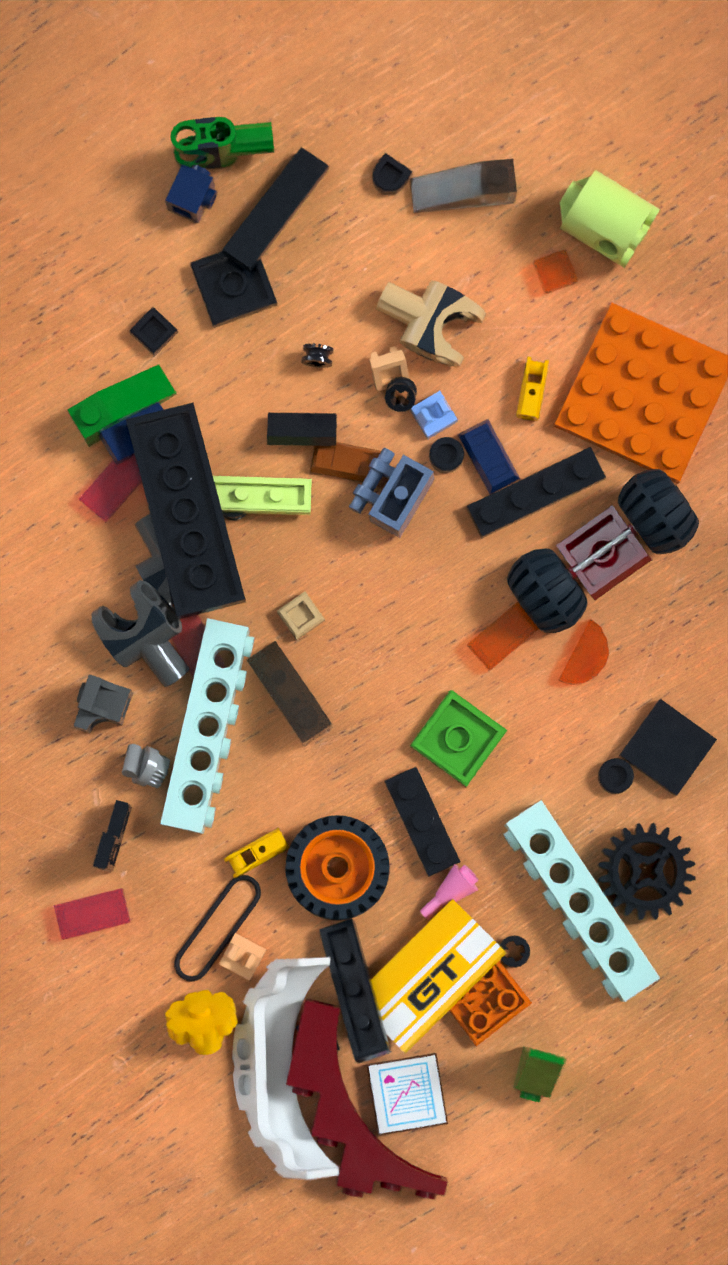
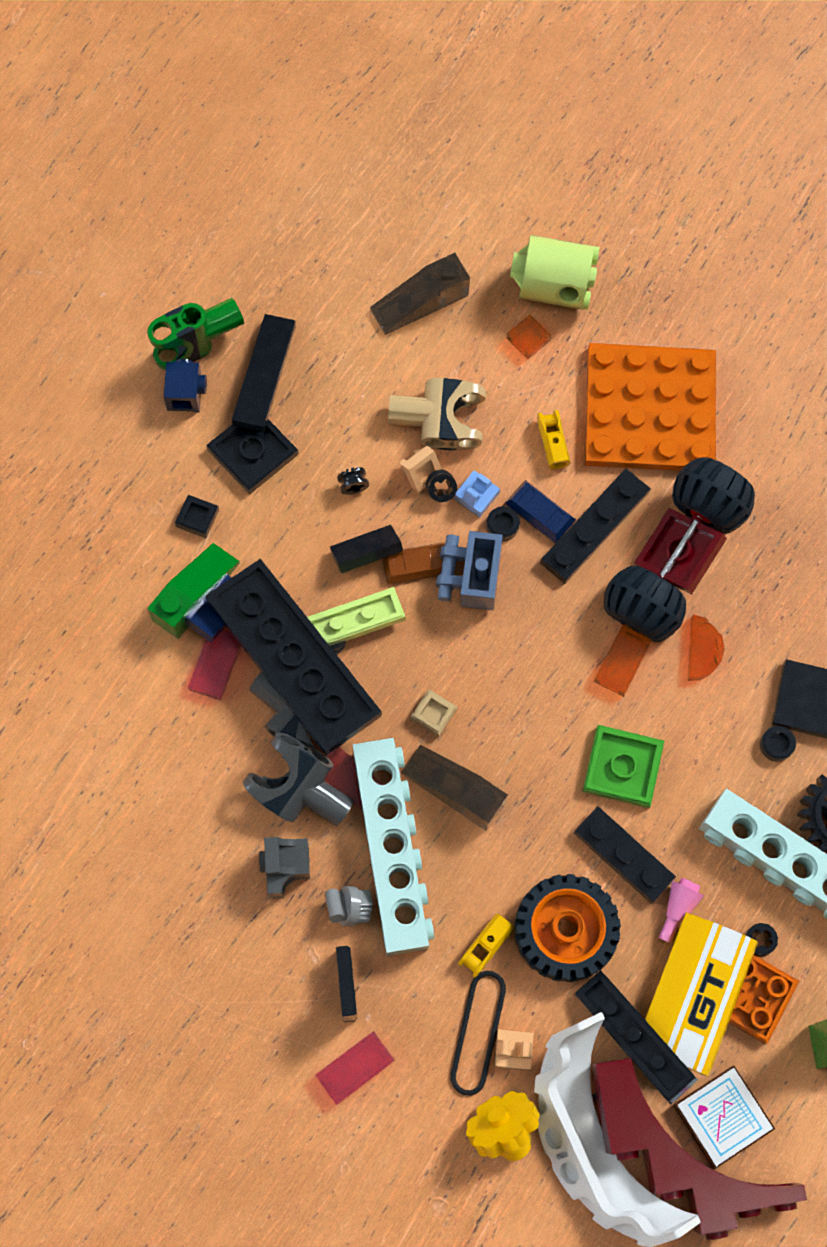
camera: 25 degrees left, 10 degrees down
(390, 175) = (352, 310): black tile -> none

